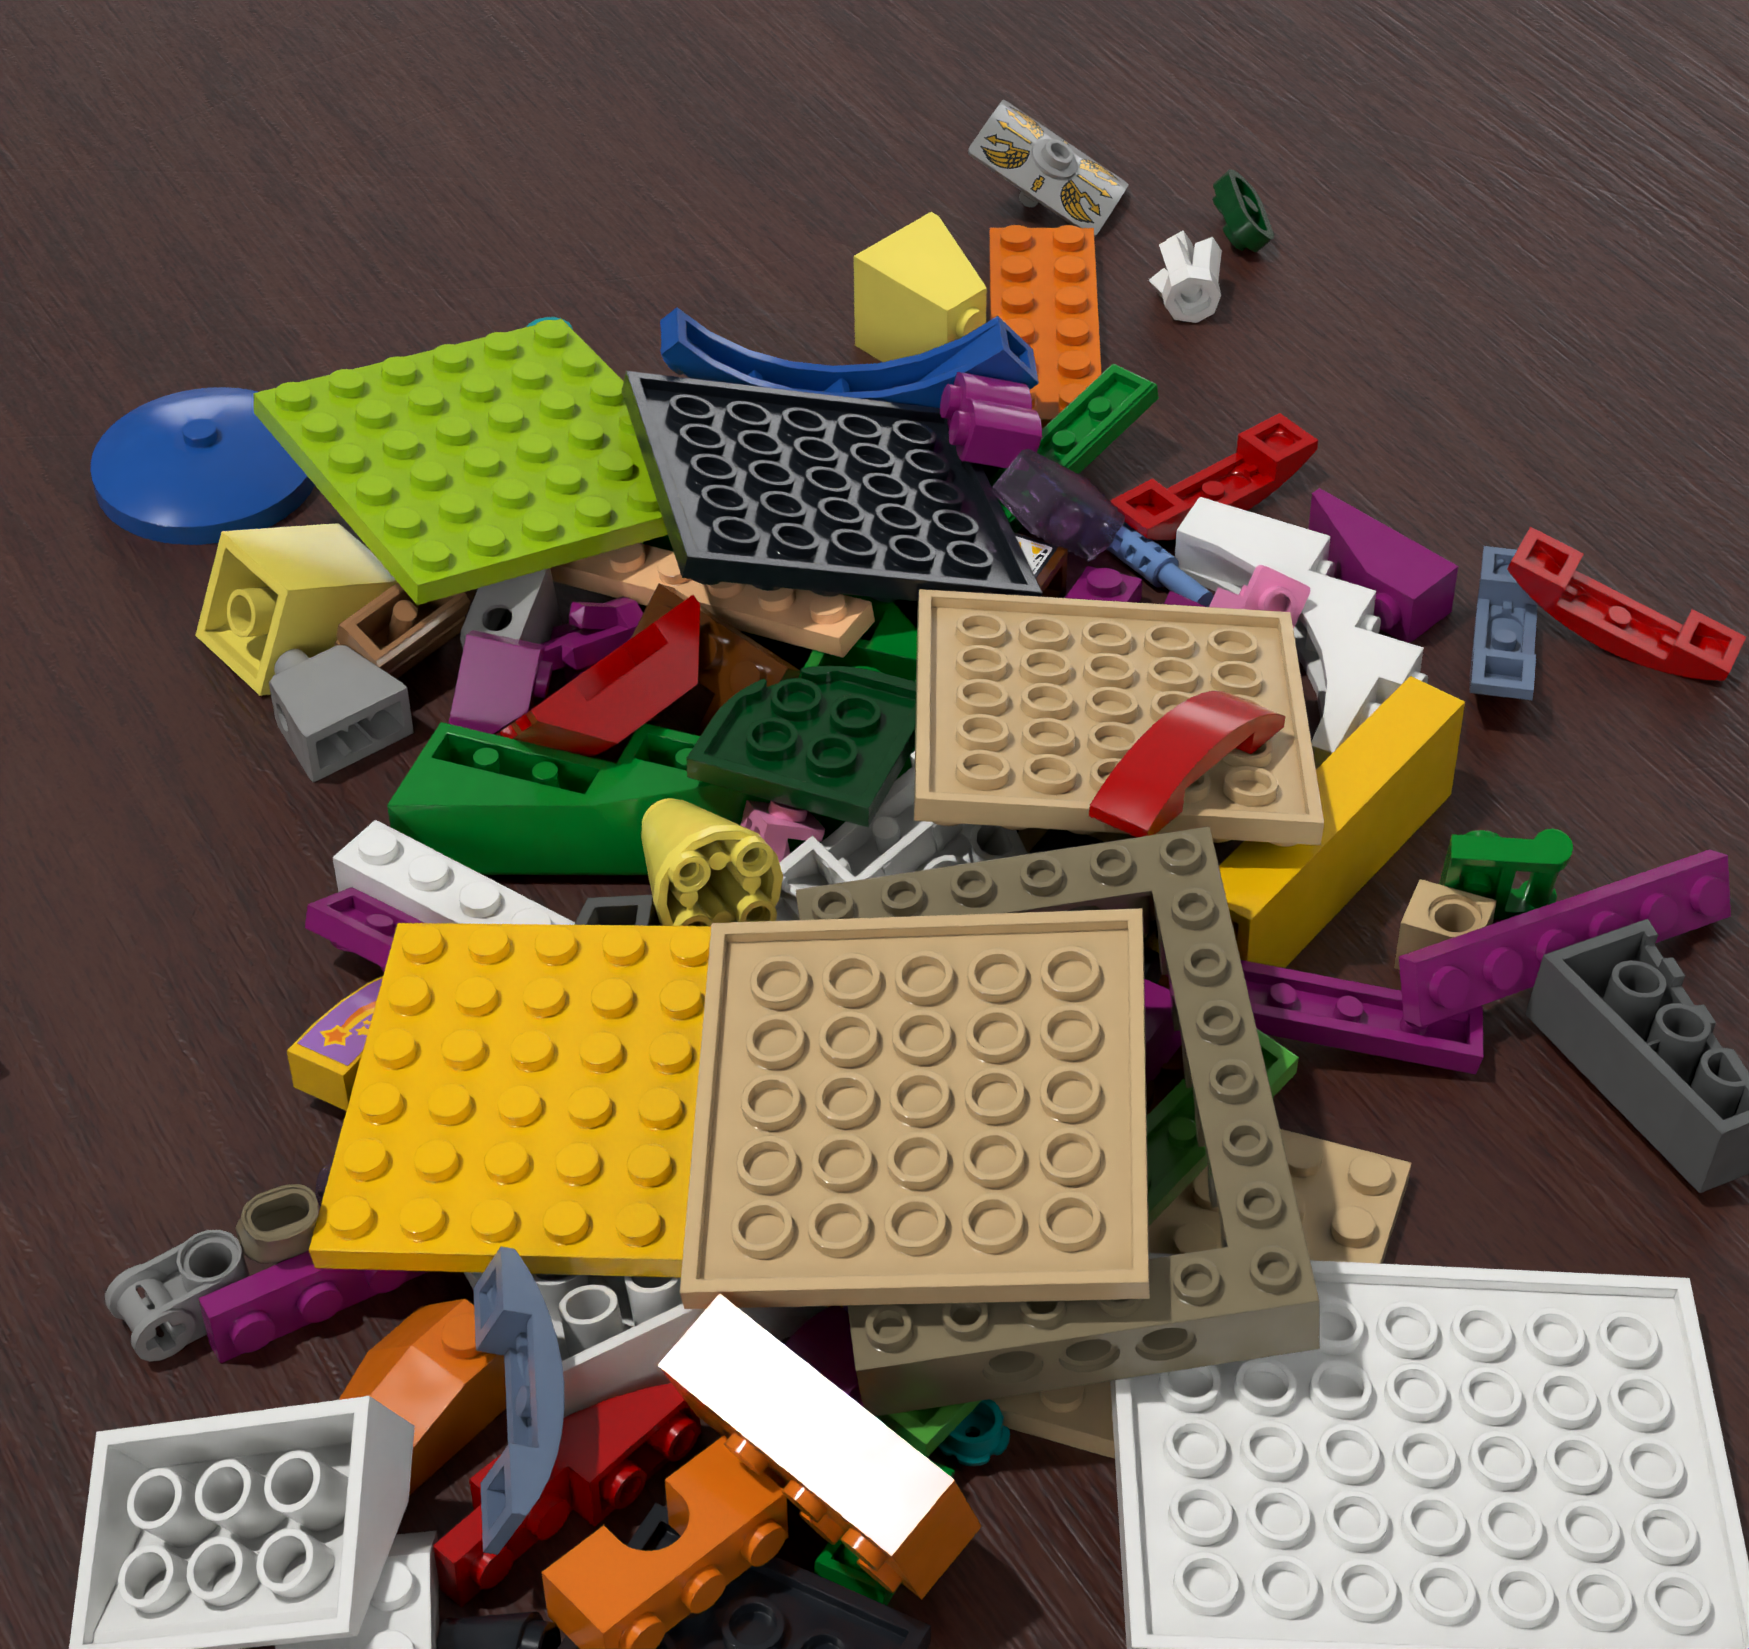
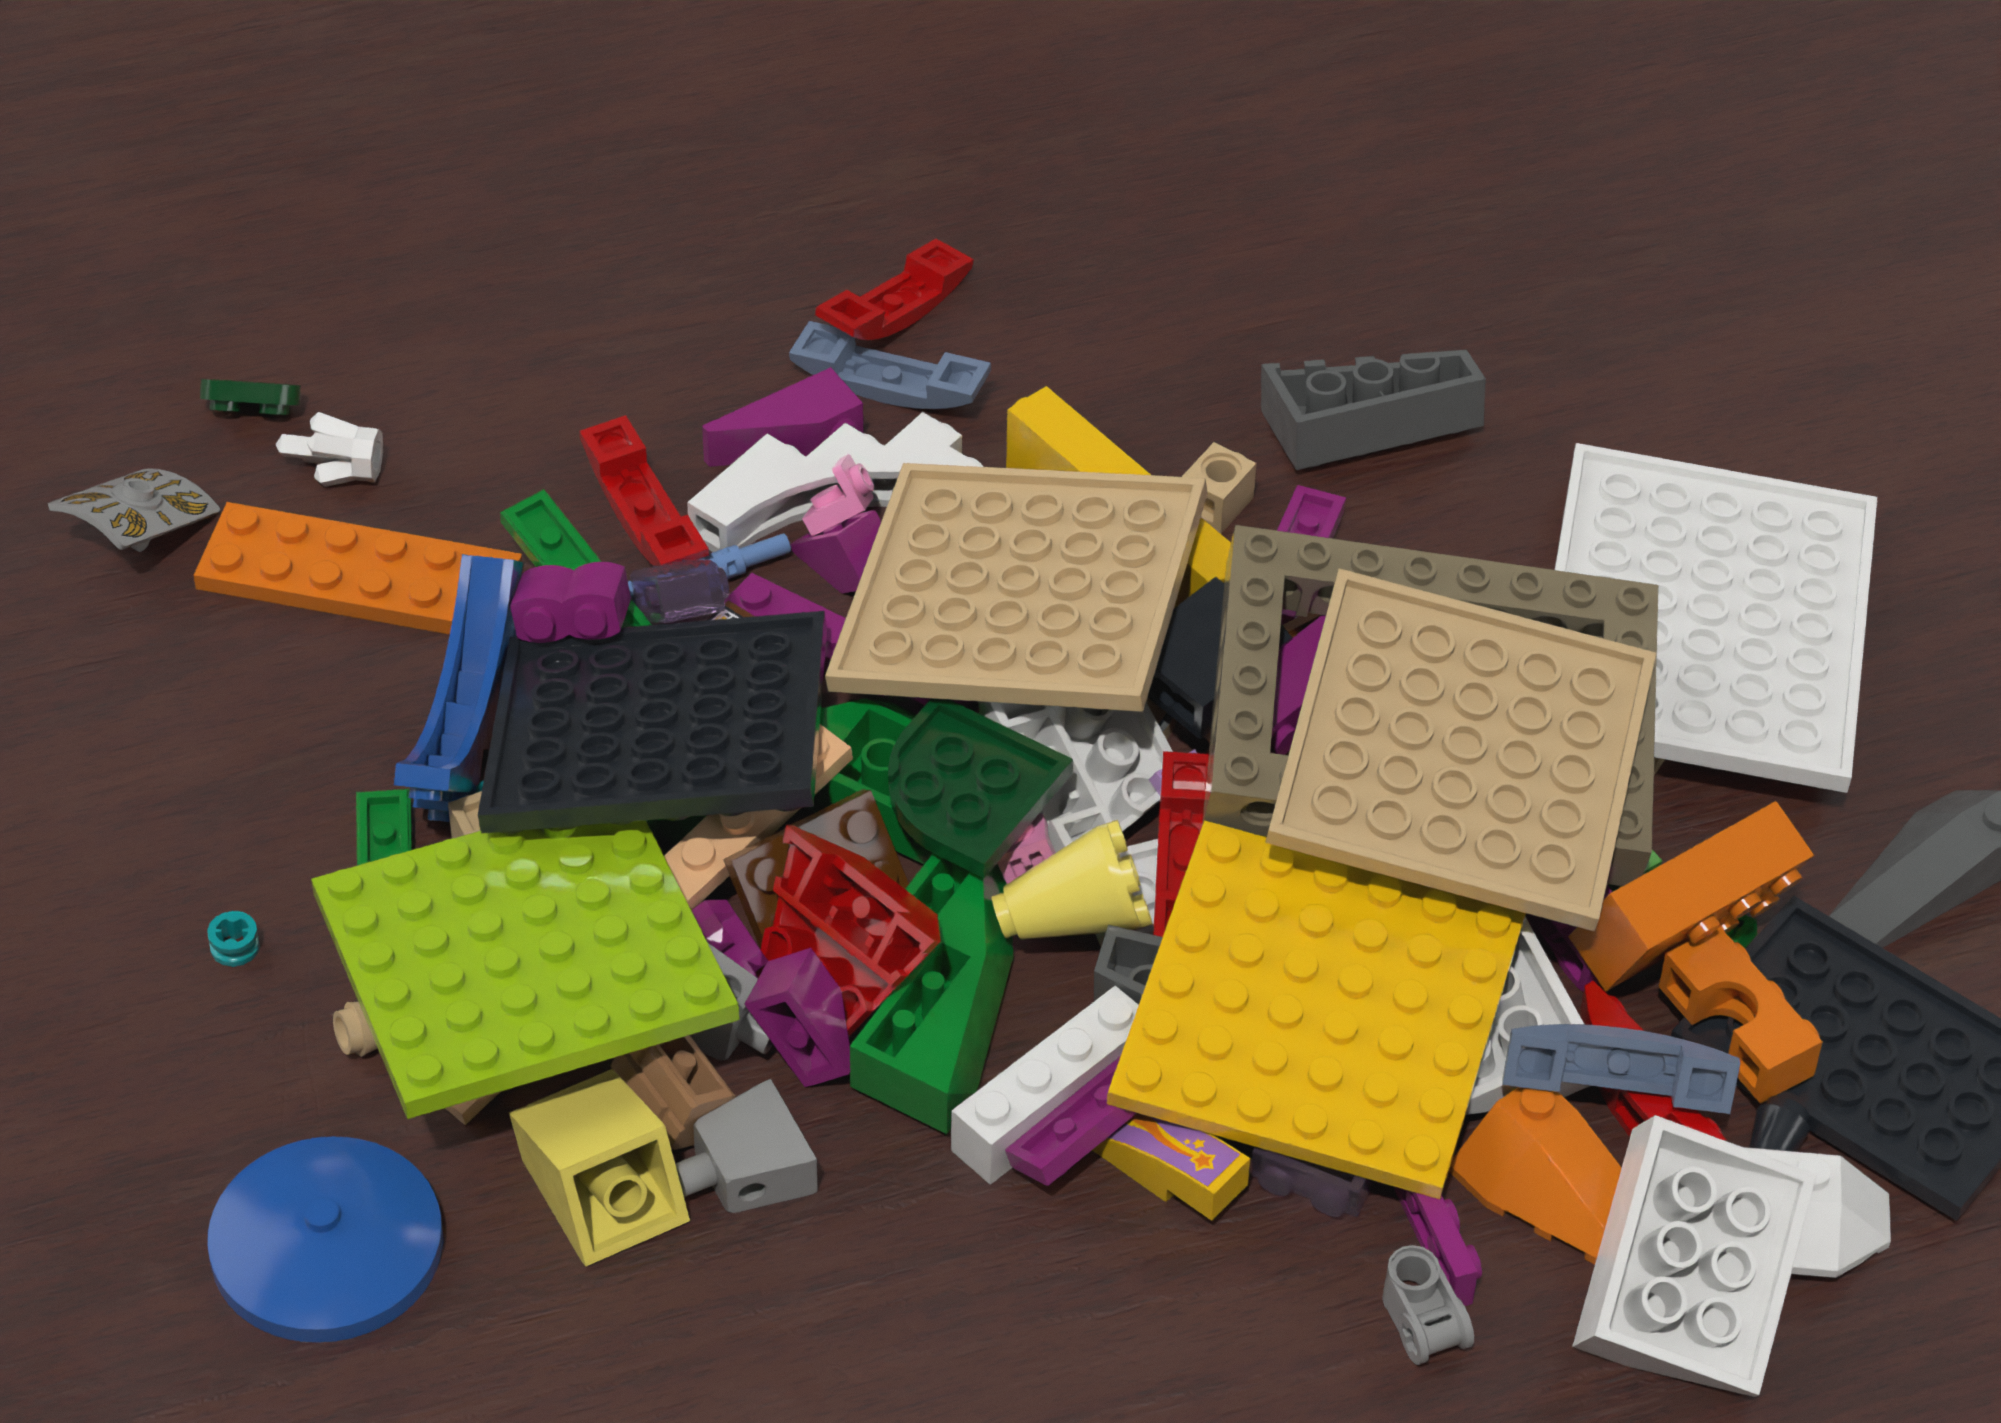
camera: 80 degrees left, 5 degrees up
(278, 1223) = (1398, 1215): dark tan piece -> none
(915, 292) = (344, 628): light yellow slope -> none
(1179, 748) = (1133, 526): red slope -> none
(1488, 864) = (1191, 430): green plate -> none
(1508, 954) = (1264, 424): magenta plate -> none

